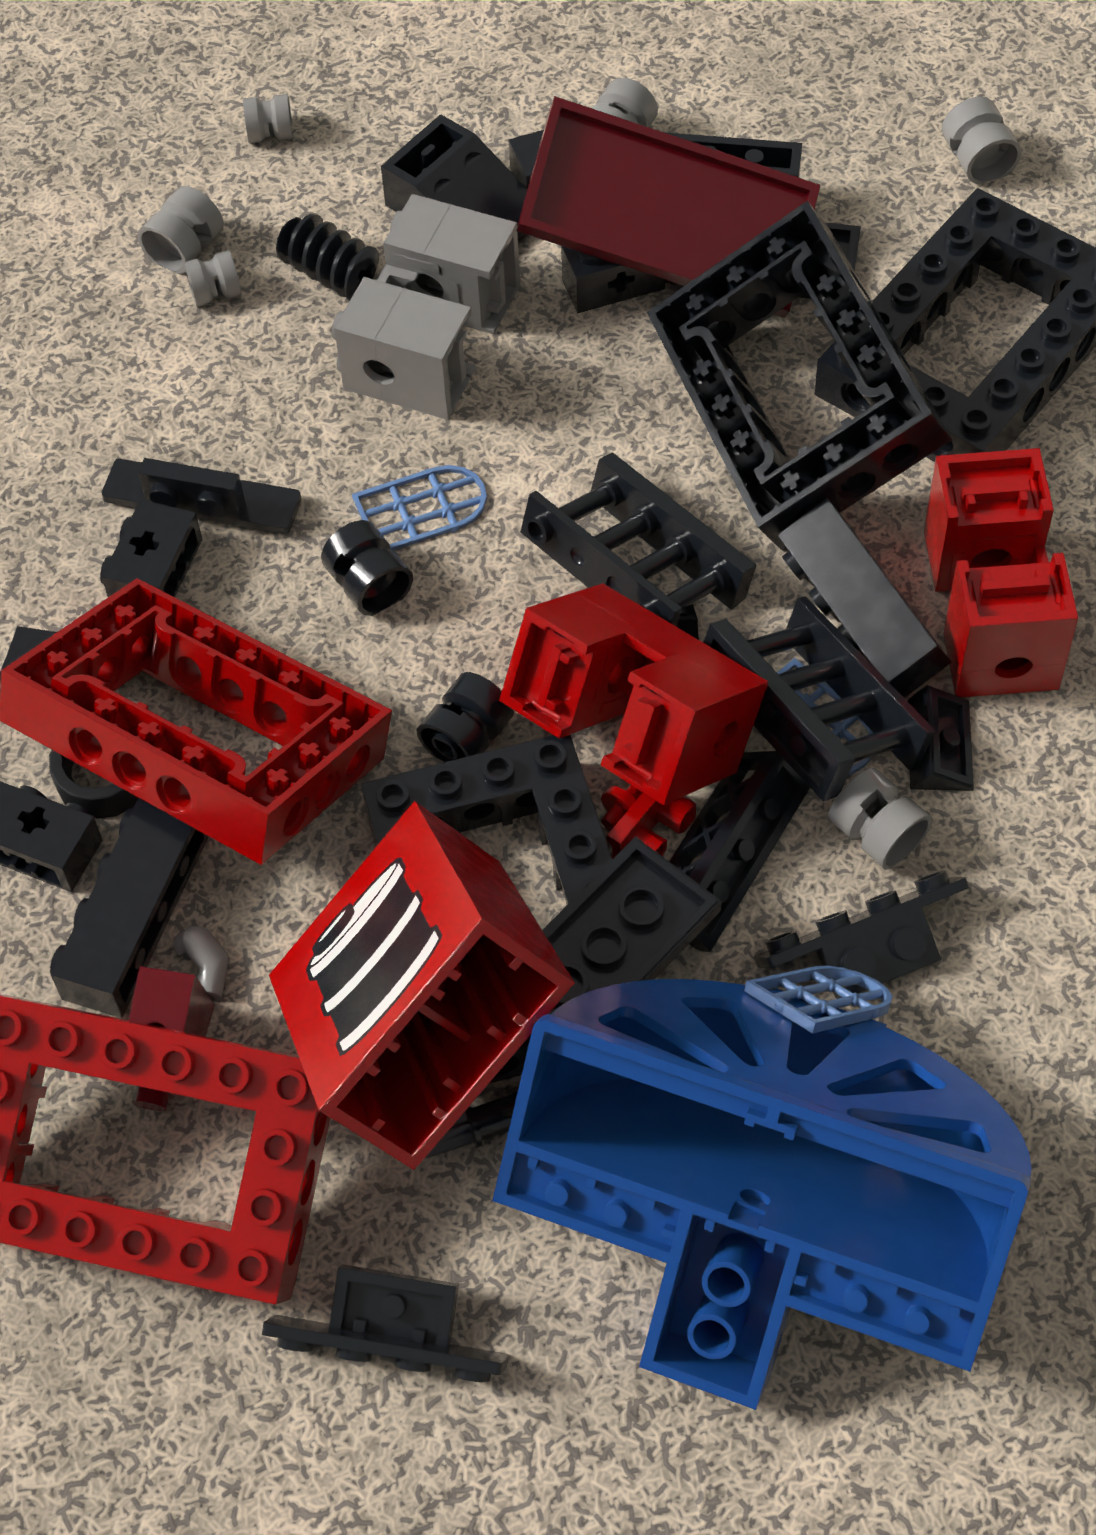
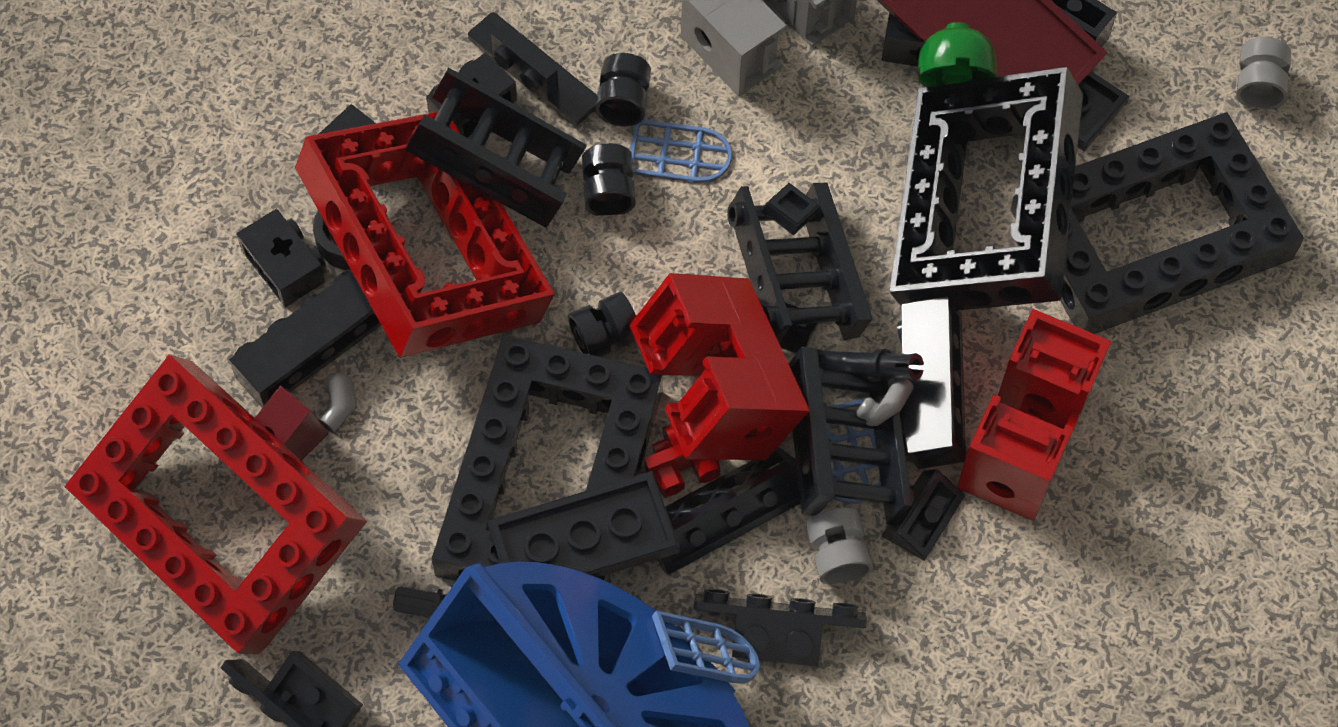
camera: 25 degrees right, 5 degrees up
(218, 611) = (484, 169): none -> black fence
(321, 467) = (623, 89): none -> black wheel
(416, 986) = (427, 496): red brick -> none
(595, 494) = (791, 208): none -> black tile
(675, 253) = (956, 56): none -> green cylinder
(801, 604) = (879, 365): none -> black pin
(841, 640) = (889, 406): none -> light grey arm

